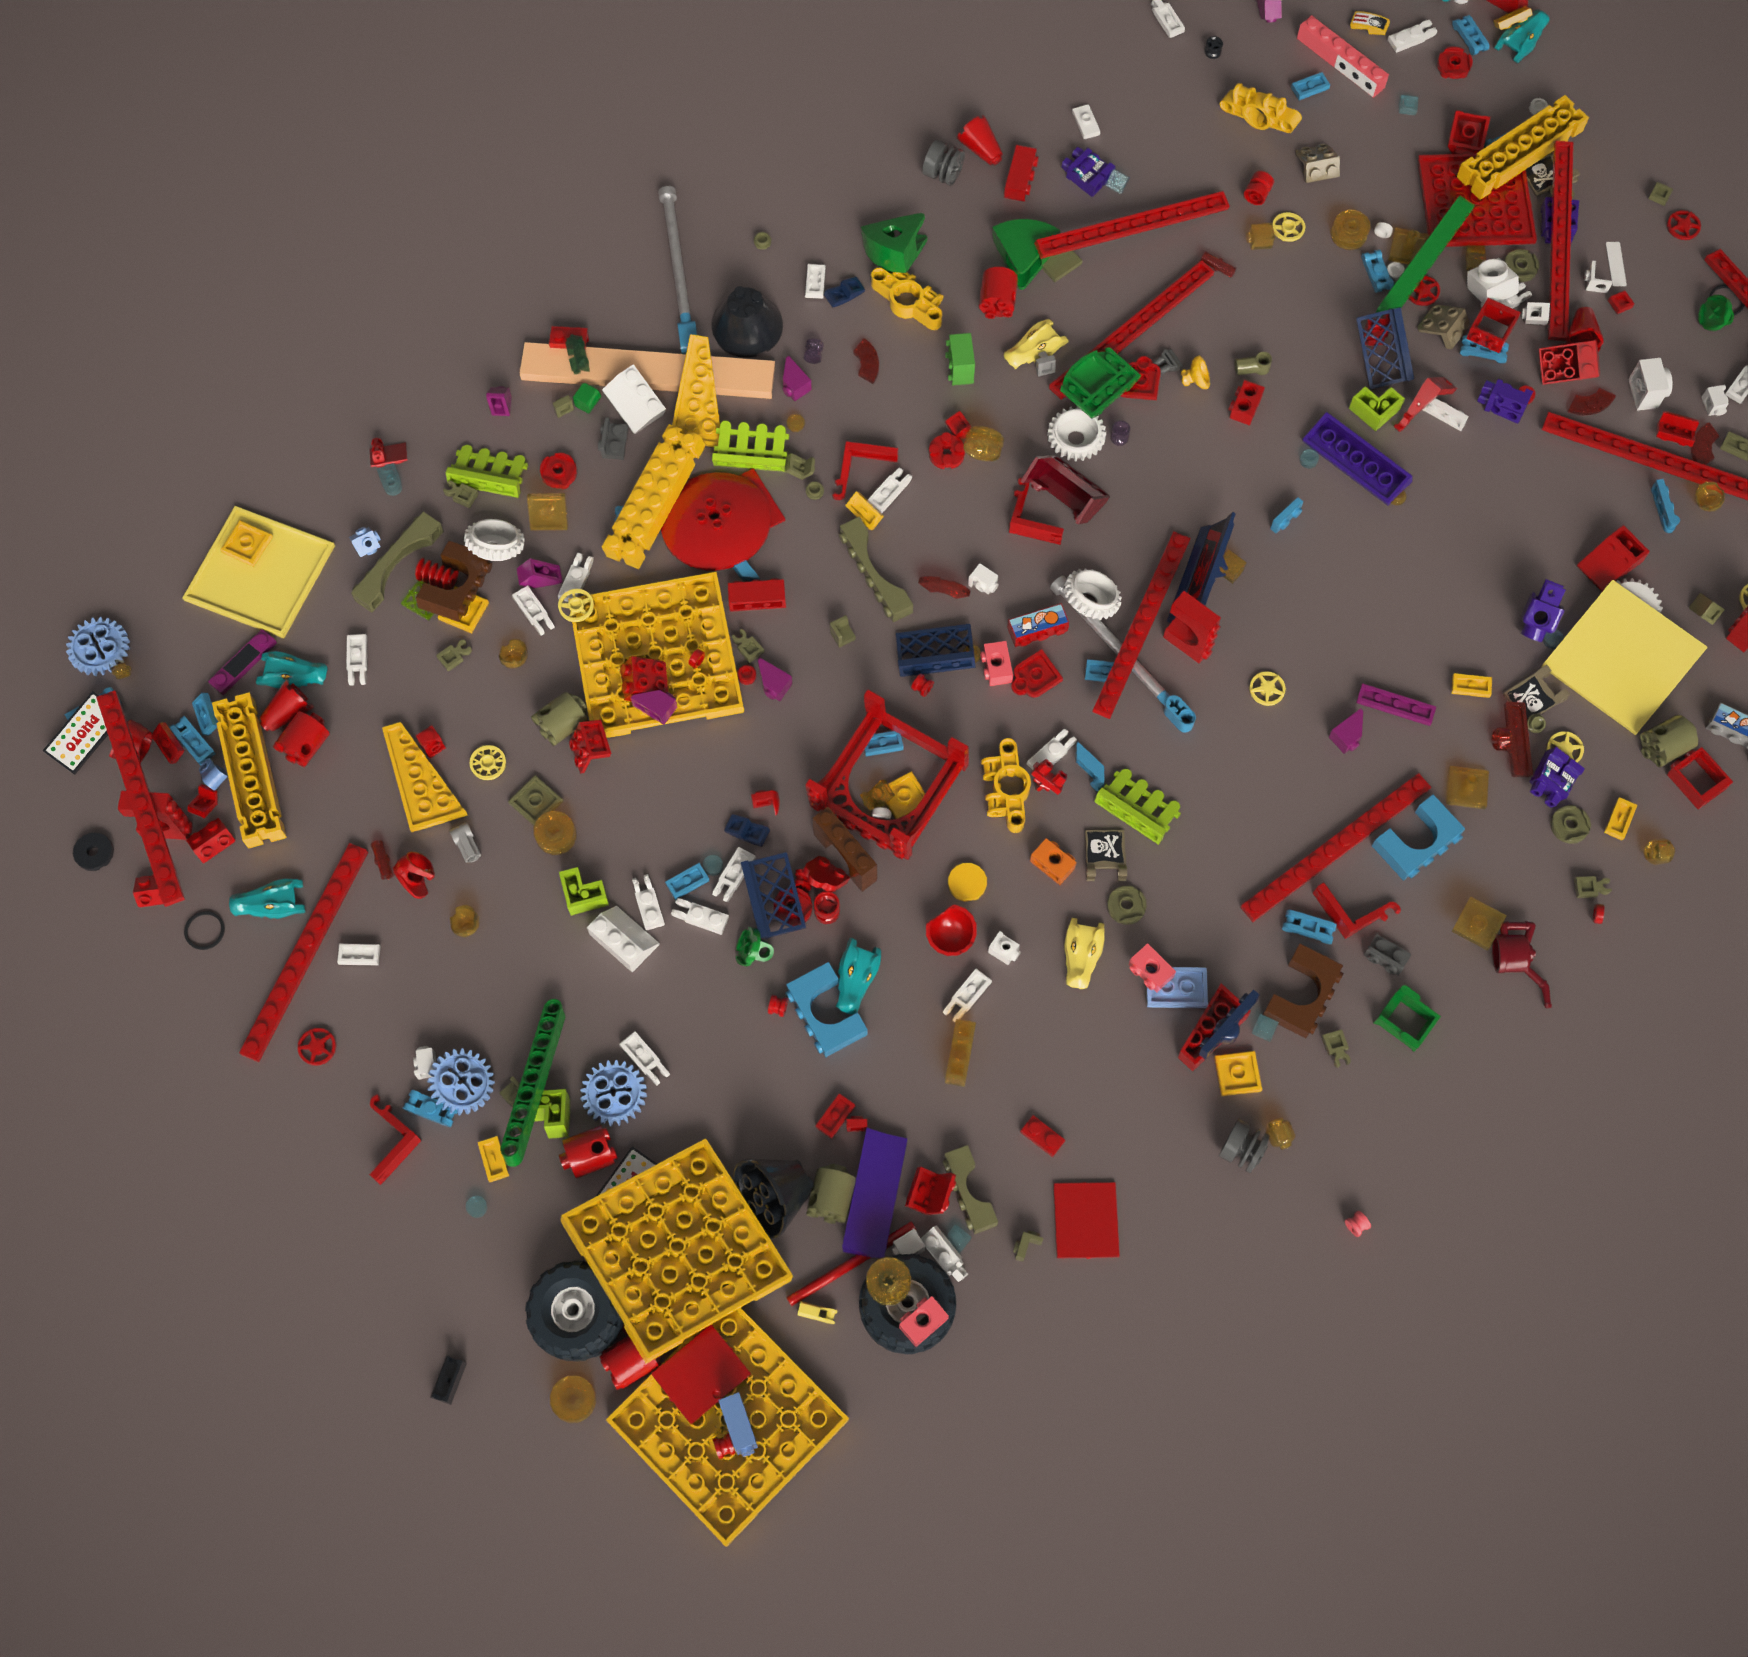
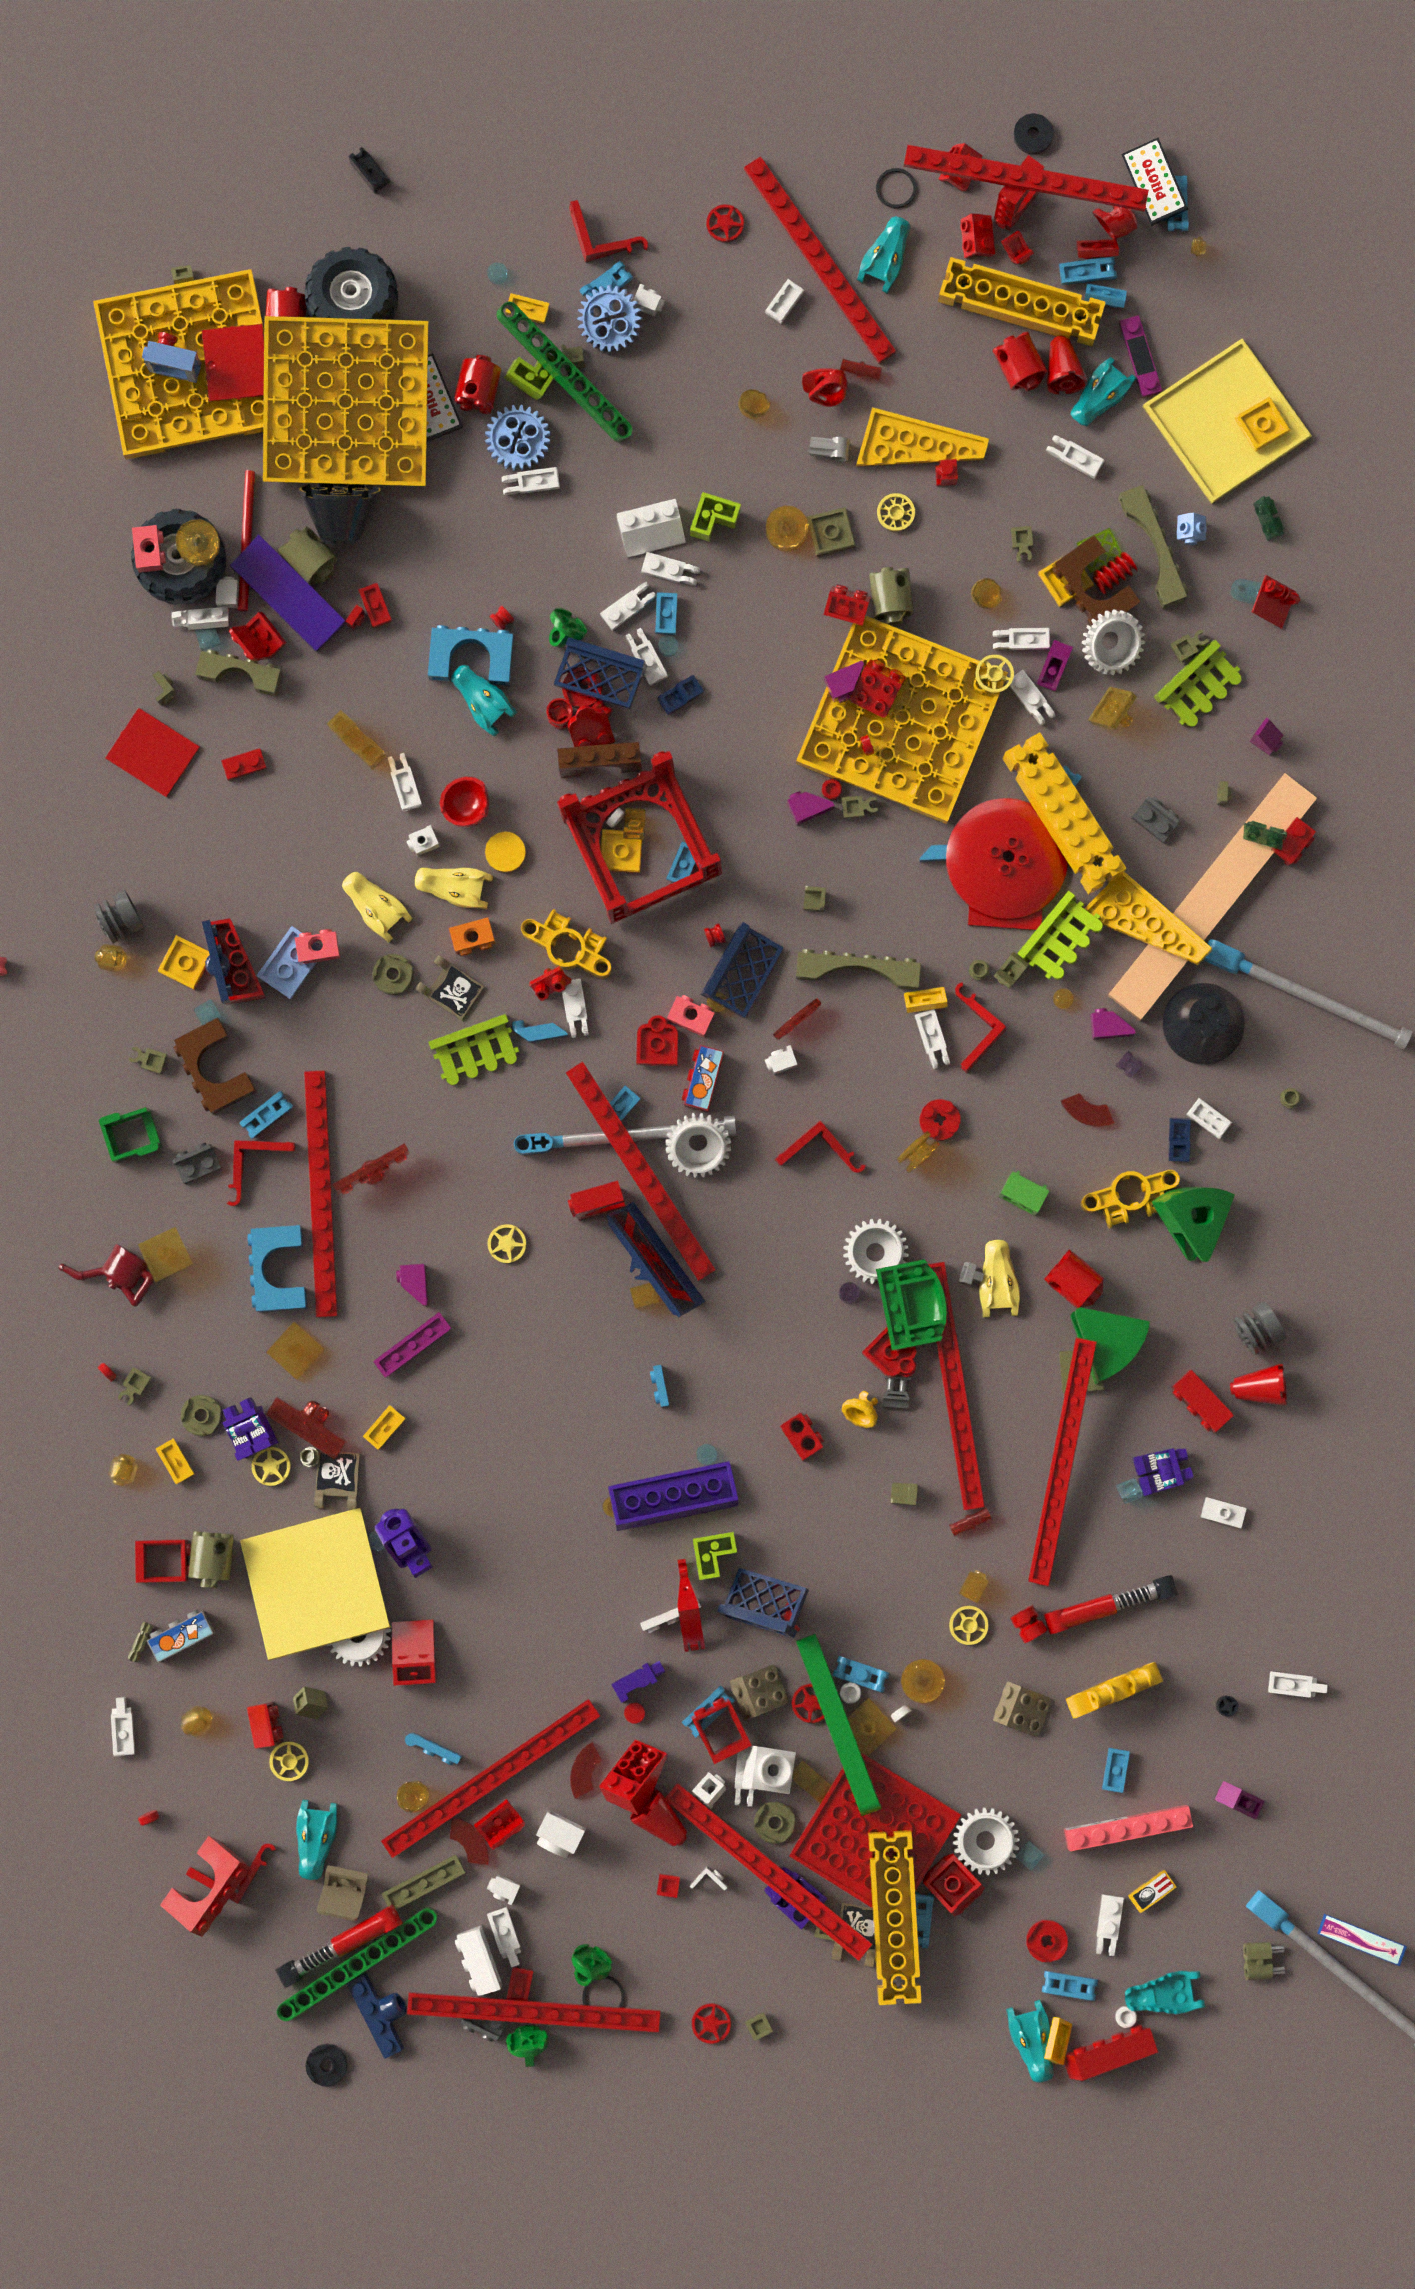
camera: 125 degrees right, 15 degrees up
(81, 654) = (1237, 256): light blue gear -> none
(212, 774) = (1035, 267): medium blue piece -> none
(323, 498) = (1265, 509): none -> clear green hinge
(560, 480) = (1152, 759): red plate -> none
(583, 1405) = (290, 267): clear yellow wheel -> none
(586, 398) = (1216, 820): green piece -> none
(634, 399) = (1182, 860): white slope -> none
(649, 1483) = (182, 274): none -> olive plate
(756, 595) = (904, 846): red brick -> none
(765, 798) = (699, 726): red plate -> none
(813, 1312) = (227, 485): light yellow bar -> none
(958, 425) = (958, 1147): red plate -> none
(1021, 900) = (457, 886): none -> light yellow animal
(1066, 485) = (823, 1208): dark red windscreen -> none
(1233, 315) = (904, 1493): none -> olive panel
(1238, 172) = (1108, 1605): none -> piece
(1253, 364) = (839, 1470): olive piece -> none
(1292, 815) = (372, 1170): none -> clear red plate
(1427, 122) = (993, 1857): none -> white gear
(1537, 105) = (940, 1987): white tile -> none
(1616, 264) = (715, 1920): white sticker -> none

